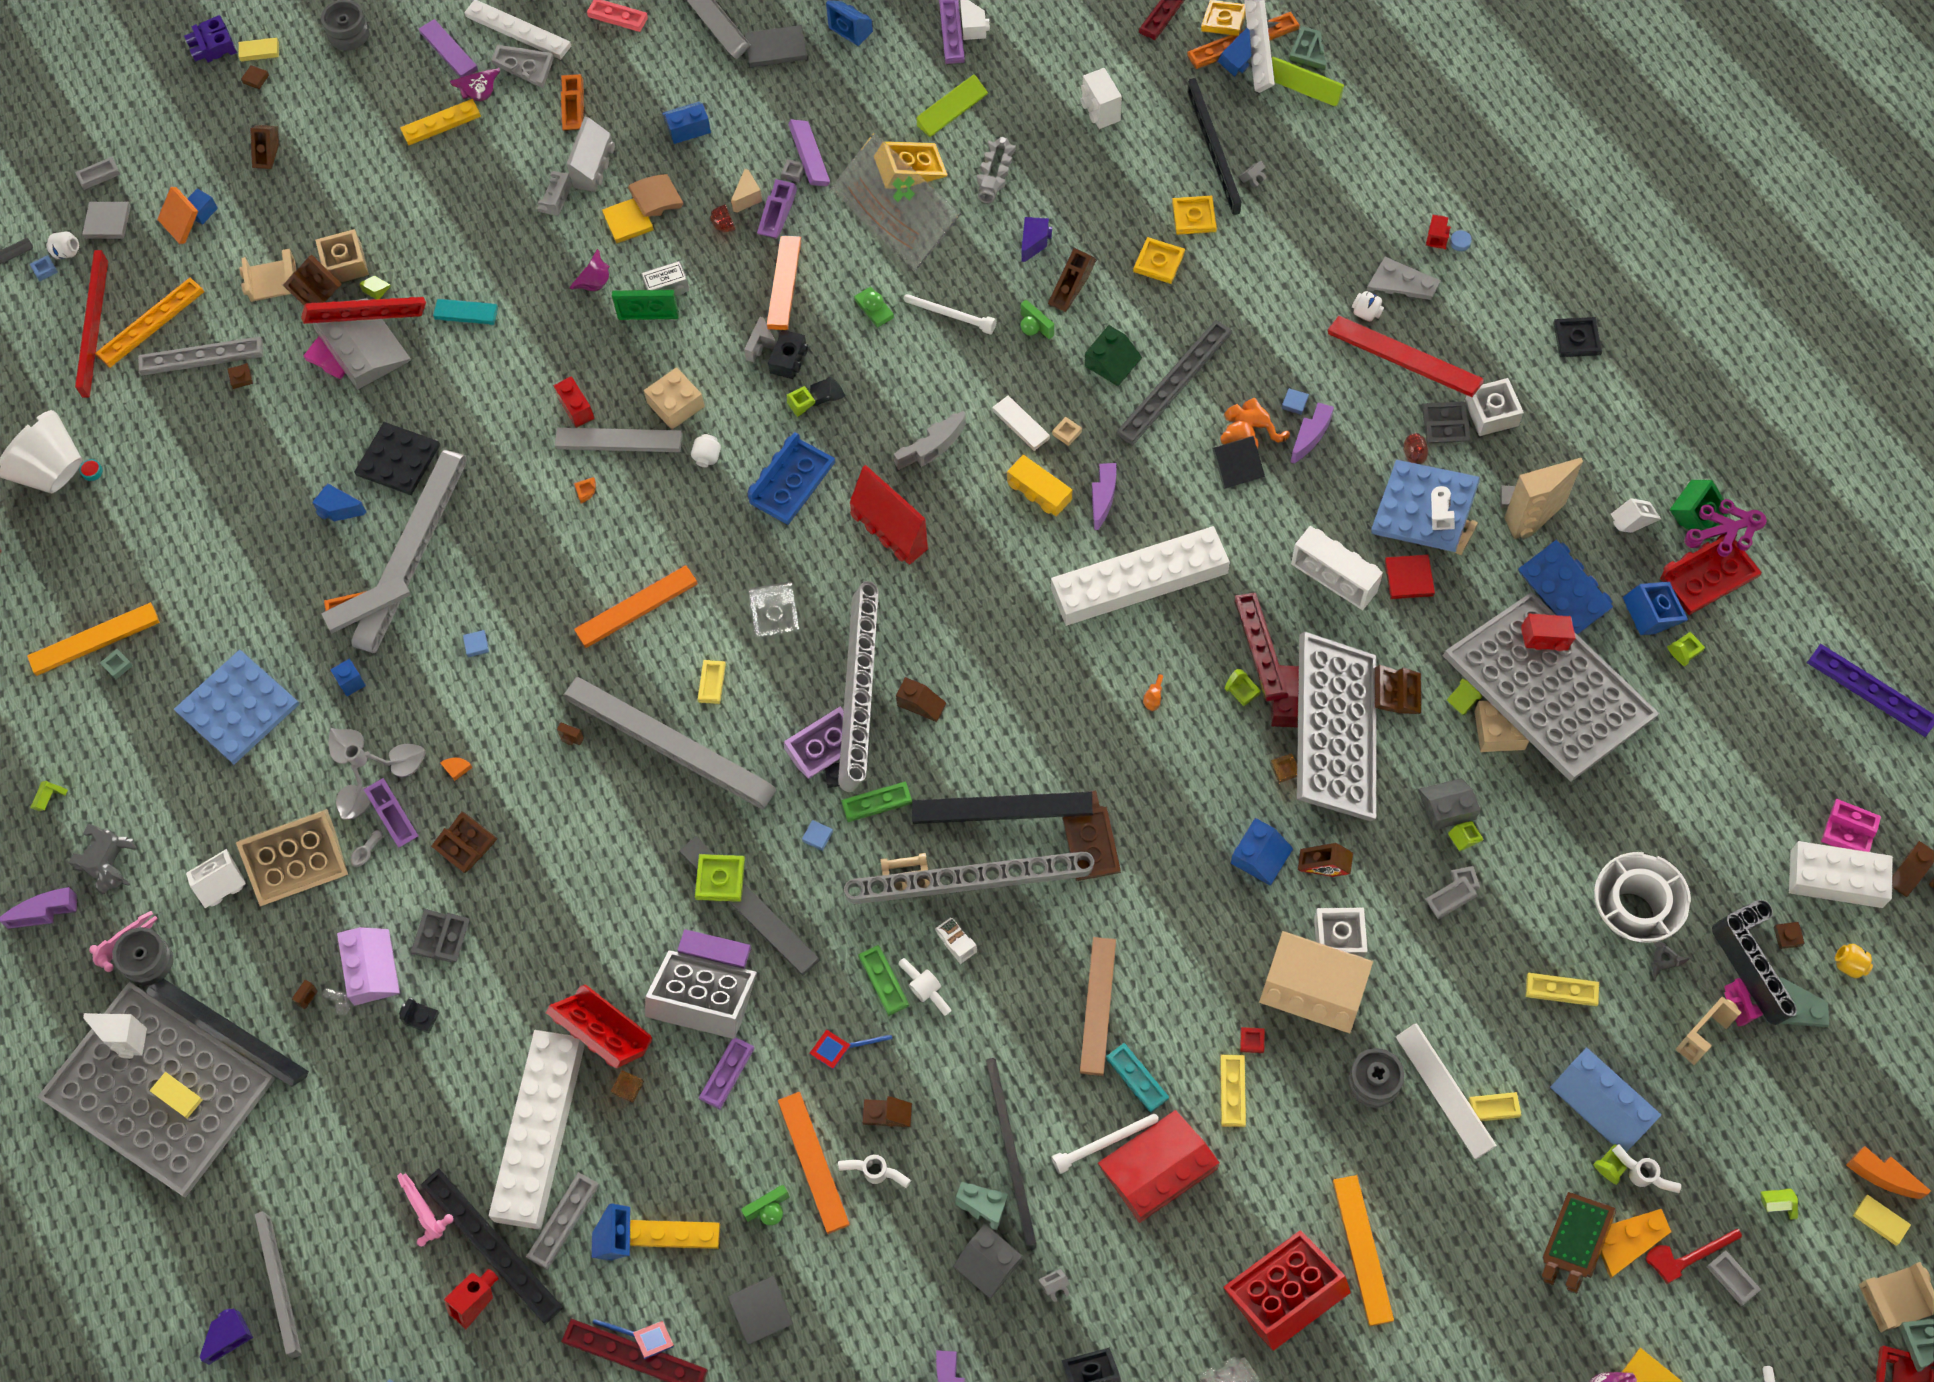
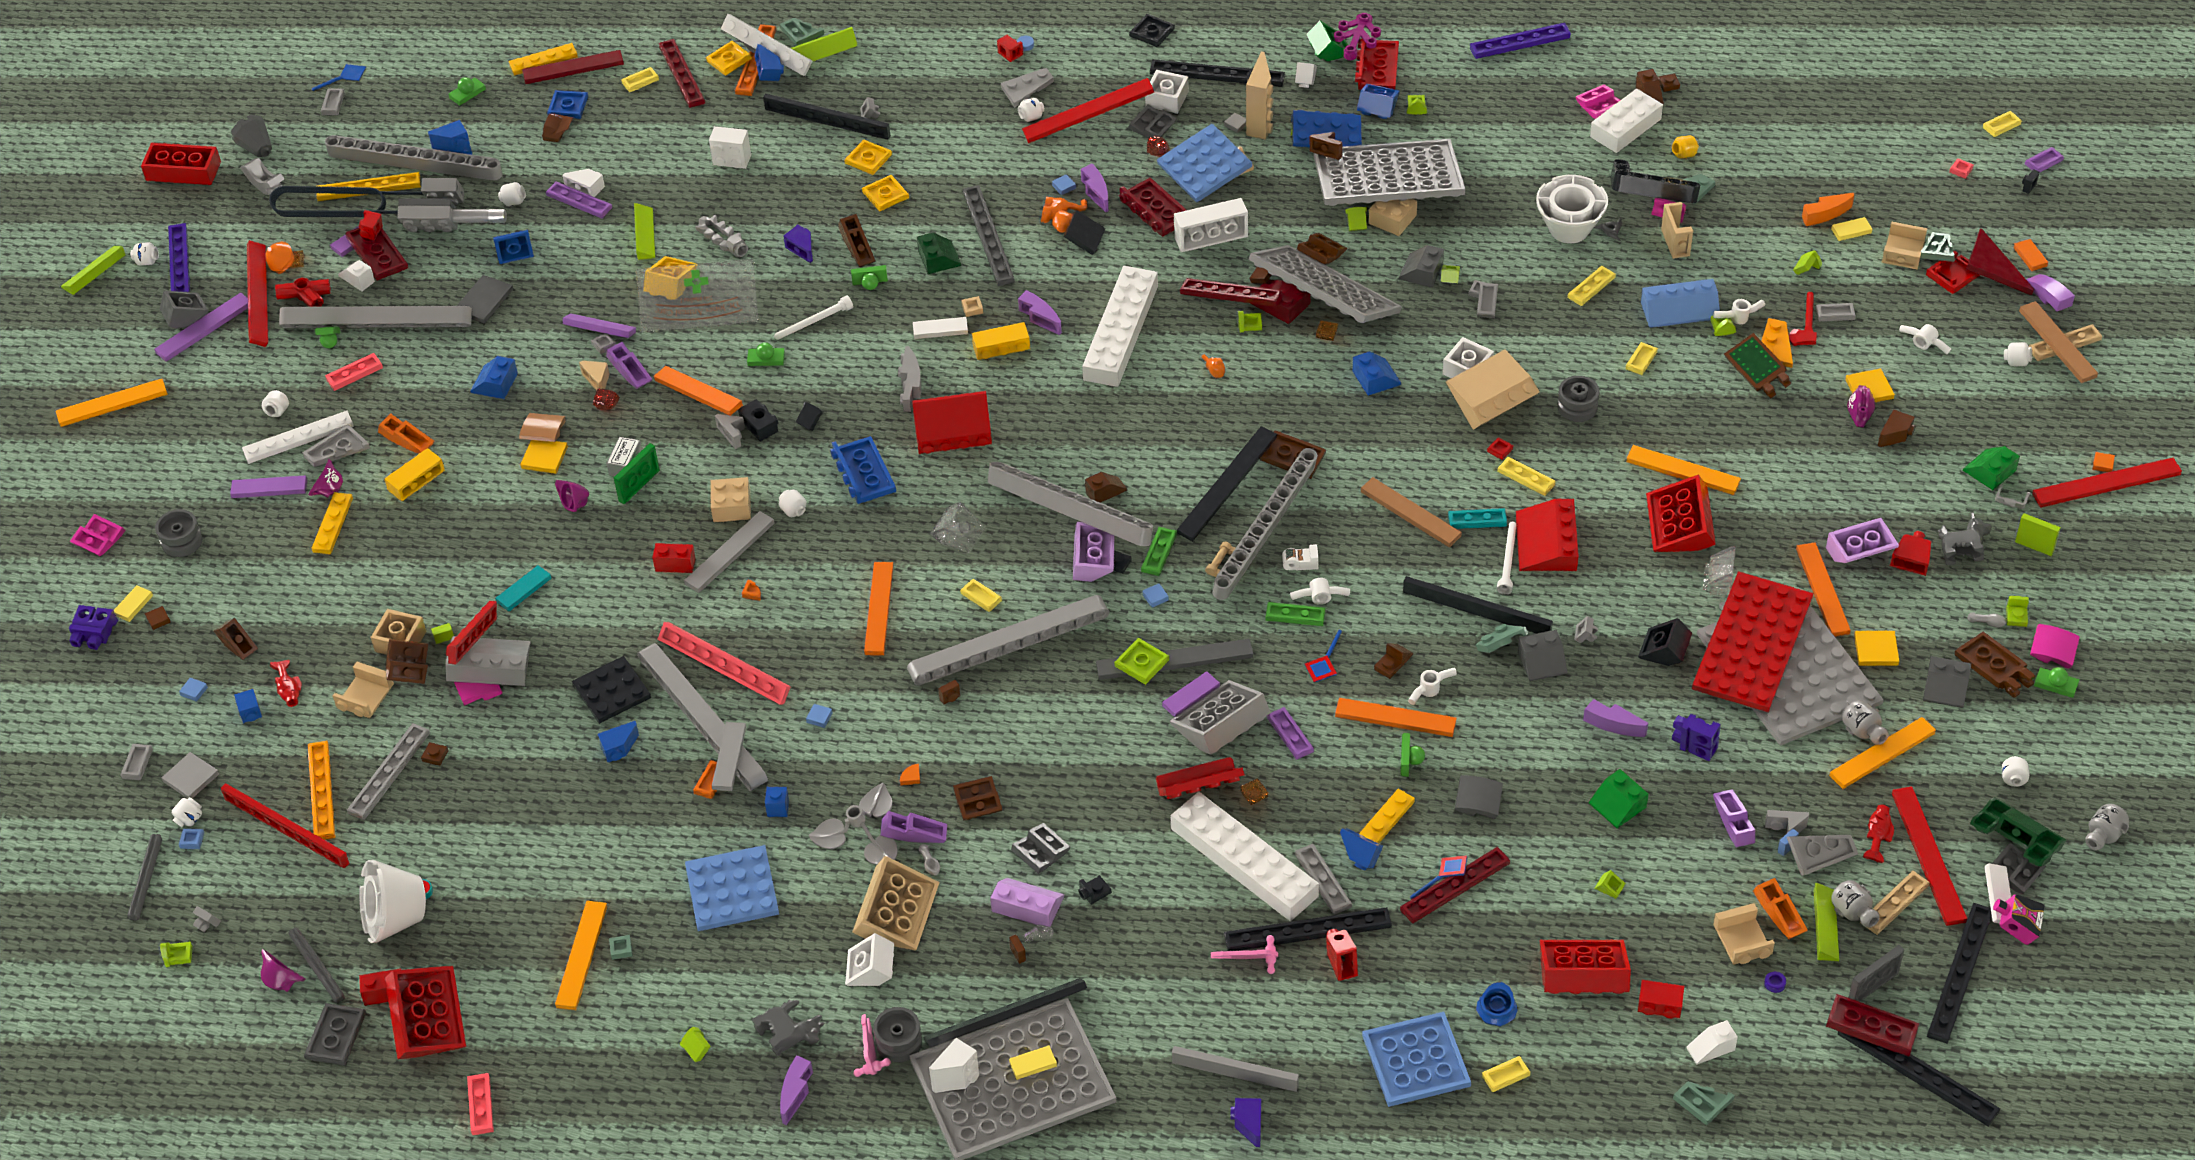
camera: 55 degrees left, 15 degrees down
(177, 215) = (244, 720): orange tile -> none
(196, 156) = (193, 689): none -> medium blue tile
(243, 218) = (287, 687): none -> red animal
(481, 526) = (724, 663): none -> coral plate
(531, 141) = (414, 474): none -> yellow brick
(555, 194) = (476, 484): light grey hinge -> none
(590, 156) = (469, 445): slope -> none
(800, 400) = (803, 433): lime slope -> none
(1326, 860) = (1409, 344): reddish brown slope -> none
(1329, 498) = (1152, 205): none -> dark red bracket
(1409, 576) = (1252, 197): red tile -> none
(1441, 502) = (1221, 151): white leg -> none
(1446, 1091) = (1614, 373): white tile -> none
(1539, 598) = (1326, 145): none -> reddish brown slope
(1548, 632) = (1353, 150): red brick -> none
(1569, 434) = (1212, 72): none -> black tile
(1789, 935) = (1644, 166): reddish brown plate -> none

